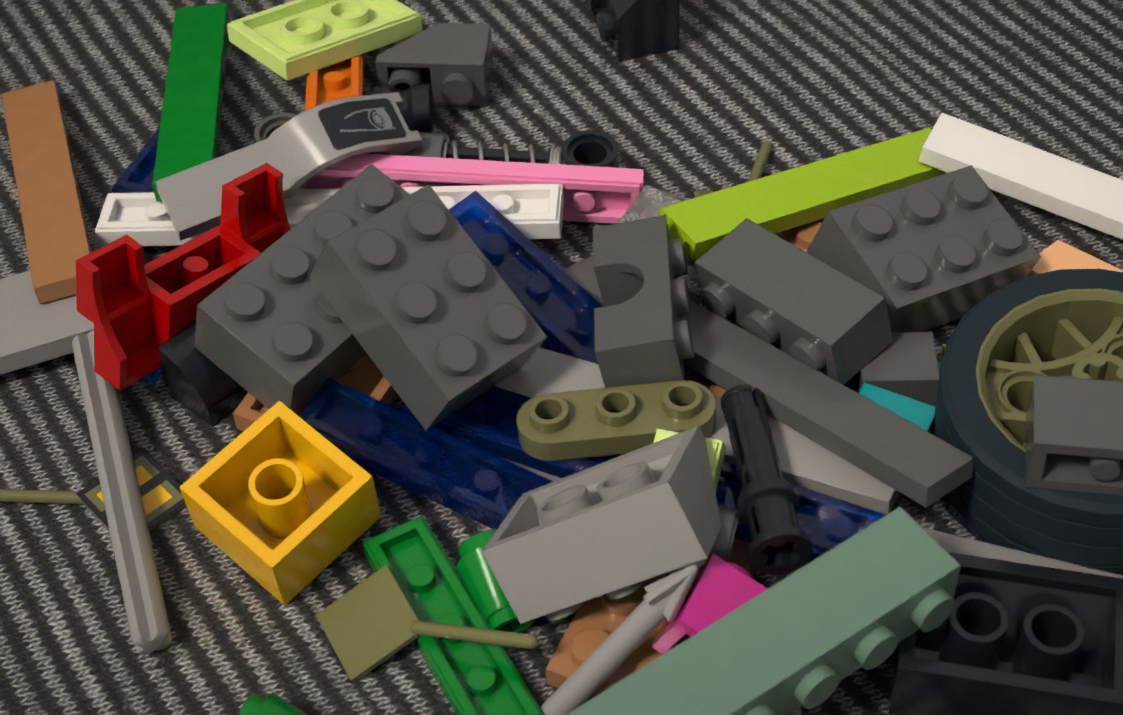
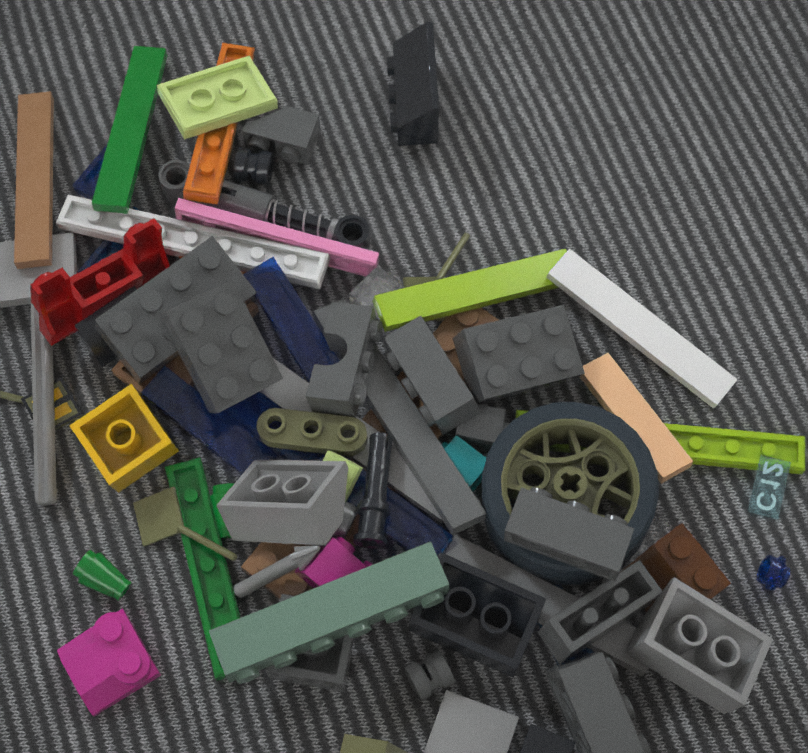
camera: 10 degrees right, 20 degrees up
(296, 149) = (173, 205): light grey piece -> none

